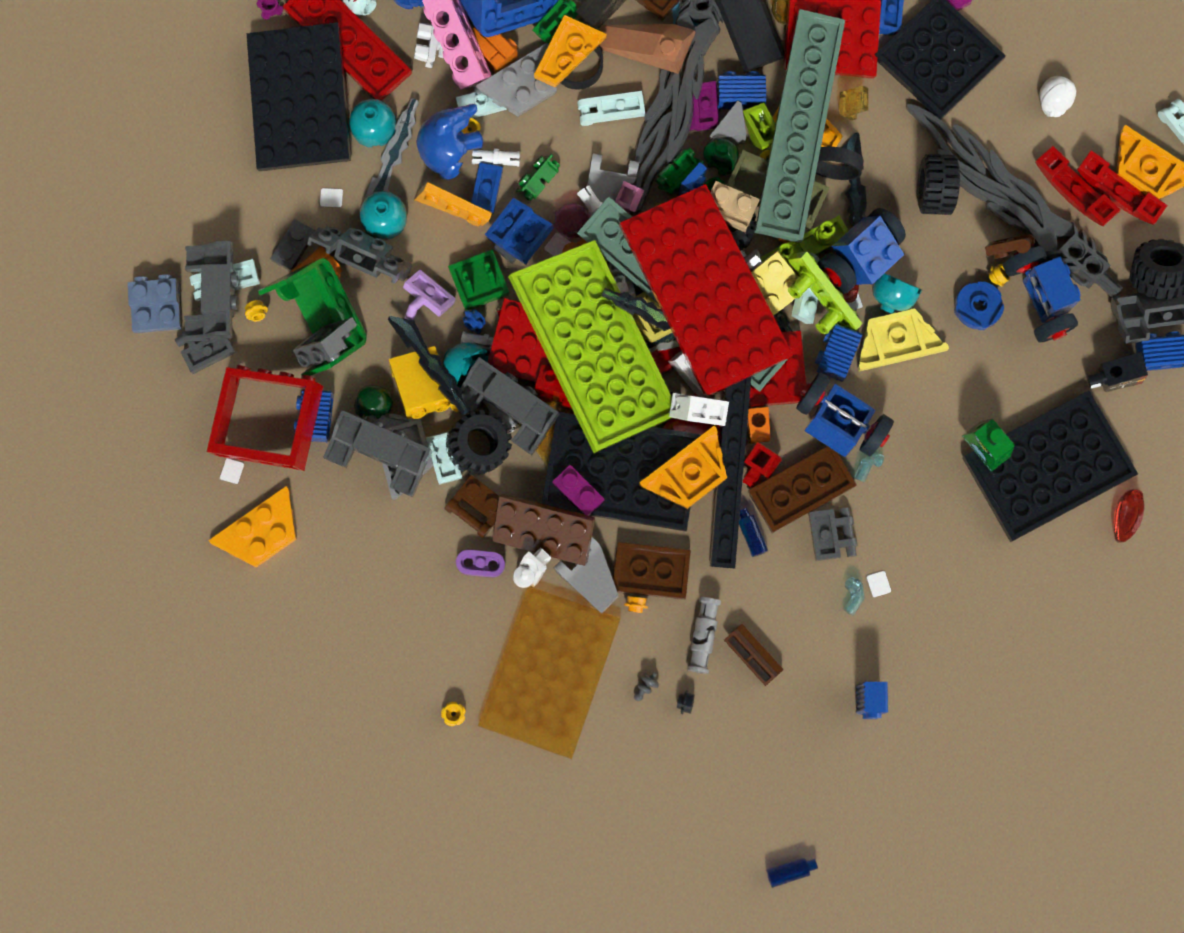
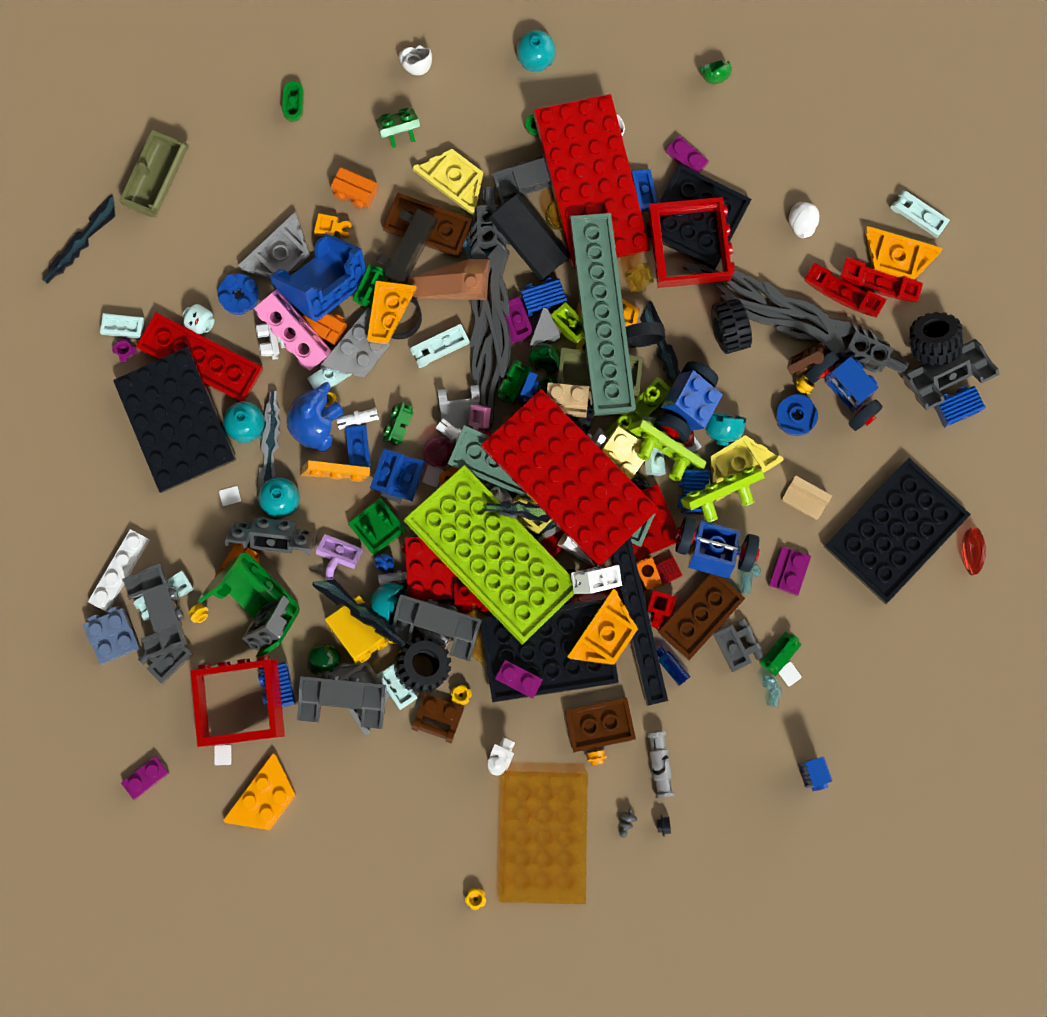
camera: 15 degrees left, 0 degrees up
(140, 468) = (145, 778): none -> magenta plate
(191, 233) = (119, 568): none -> white plate
(292, 245) = (211, 547): dark grey plate -> none
(480, 563) = (456, 764): medium lavender plate -> none
(510, 483) = (466, 694): none -> yellow plate
(537, 526) = (496, 719): reddish brown plate -> none
(593, 579) = (552, 746): light grey flag -> none
(753, 654) = (706, 767): reddish brown piece -> none
(781, 429) = (668, 571): none -> tile
(790, 872) = (795, 937): clear blue cylinder -> none
(861, 355) = (717, 490): none -> lime plate
(876, 558) = (780, 653): none -> green hinge
(916, 472) = (790, 571): none -> magenta plate
(929, 41) = (691, 206): none -> red window
(960, 398) = (806, 497): none -> tan panel
(989, 443) = (842, 529): green torso -> none
(1128, 369) = (935, 431): black torso -> none

